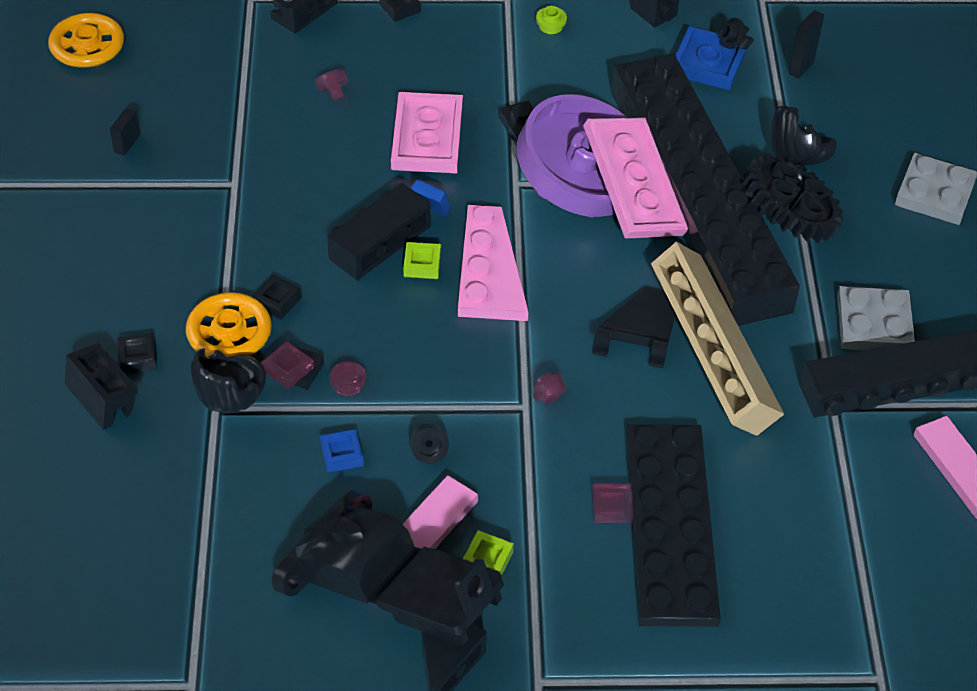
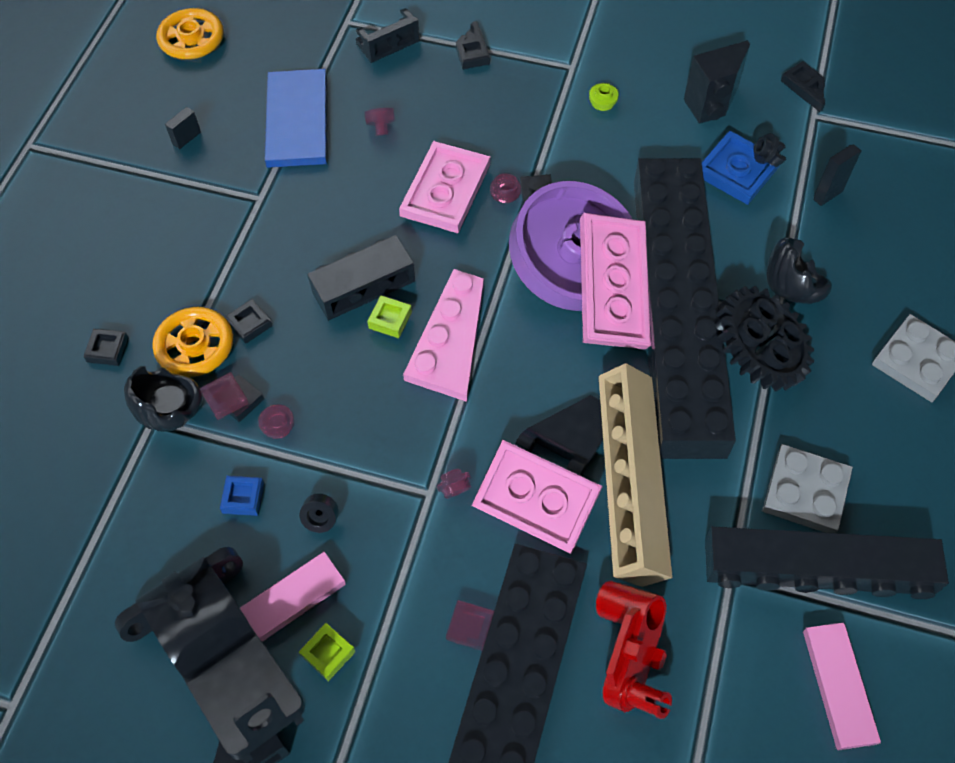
camera: 20 degrees right, 10 degrees up
(99, 384) = (56, 371): black hinge -> none
(241, 100) = (296, 118): none -> tile
(435, 196) = (421, 254): blue tile -> none
(488, 122) = (505, 188): none -> clear pink plate
(632, 380) = (537, 496): none -> bright pink tile
(771, 452) = (635, 648): none -> red piece

